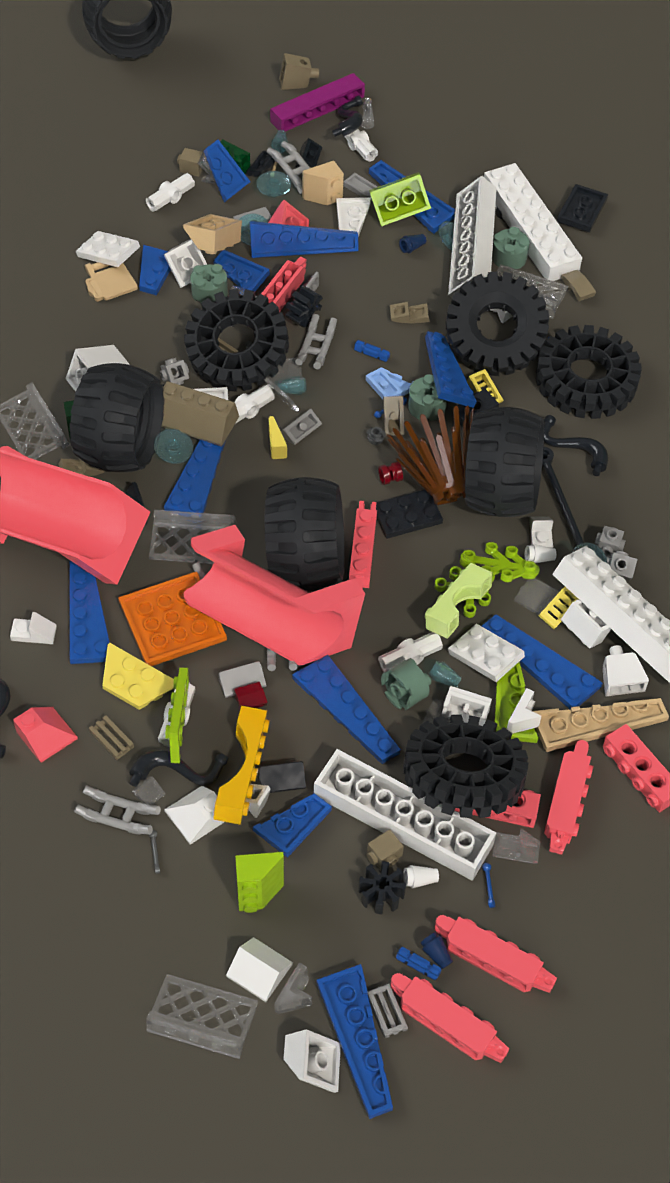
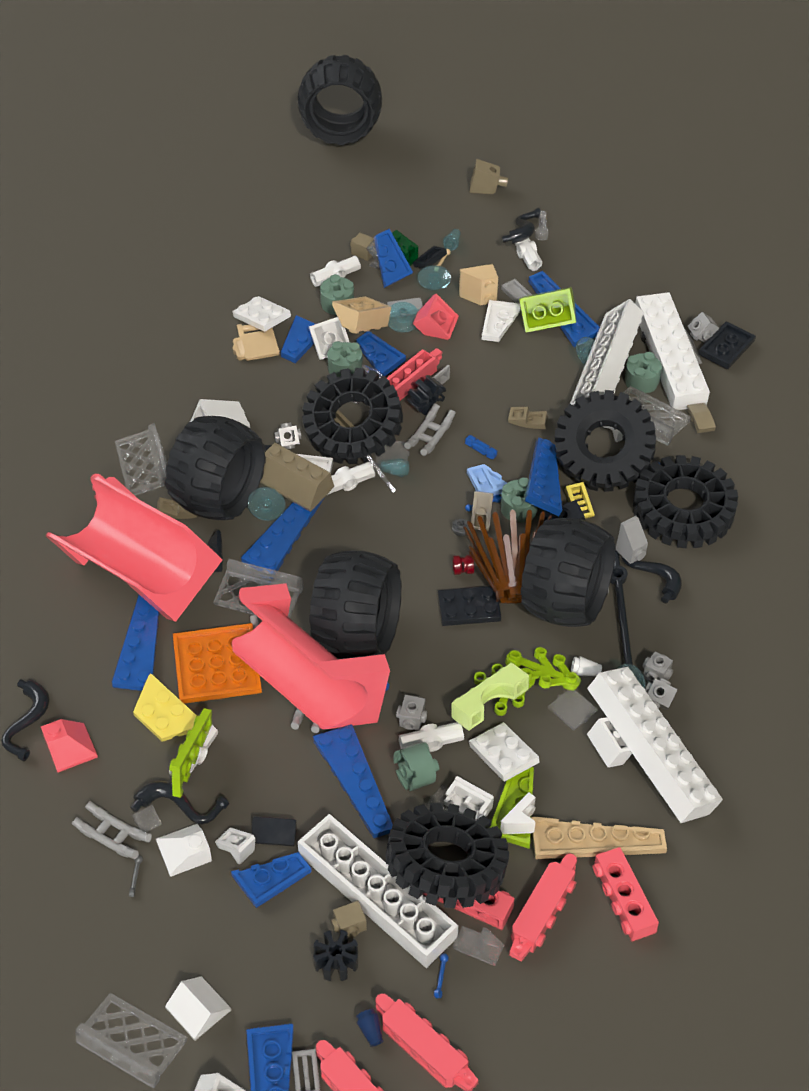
camera: 15 degrees right, 5 degrees down
(34, 630) = (88, 649): white slope -> none
(101, 726) = (121, 749): dark tan tile -> none
(177, 213) = (335, 289): none -> sand green brick
(232, 796) = (216, 839): yellow arch -> none
(241, 677) = (264, 731): light grey slope -> none
(250, 696) = (266, 749): dark red piece -> none
(258, 879) = (217, 921): lime slope -> none
(277, 443) = (363, 518): light yellow slope -> none
(287, 240) = (431, 331): blue wing -> none
(291, 997) = (218, 1040): clear slope -> none
(294, 155) = (454, 271): light grey piece -> none
(301, 427) = (392, 507): light grey slope -> none
(310, 153) = (476, 256): black slope -> none
(316, 102) = (497, 209): magenta brick -> none
(363, 544) = (414, 630): coral hinge -> none
(385, 631) = (412, 713): none -> light grey brick
(412, 242) = (549, 352): dark blue cone -> none
(418, 963) = (349, 1036): blue axle -> none
(419, 876) = (375, 952): white cone -> none
(444, 674) = (457, 764): clear light blue cone -> none
(541, 531) = (594, 646): white slope -> none
(550, 669) = (566, 783): blue wing -> none
(554, 419) = (631, 540): none -> light grey slope
(555, 194) = (702, 327): none -> light grey brick
(567, 597) = (596, 711): light yellow slope -> none
(623, 673) = (633, 798): white torso -> none

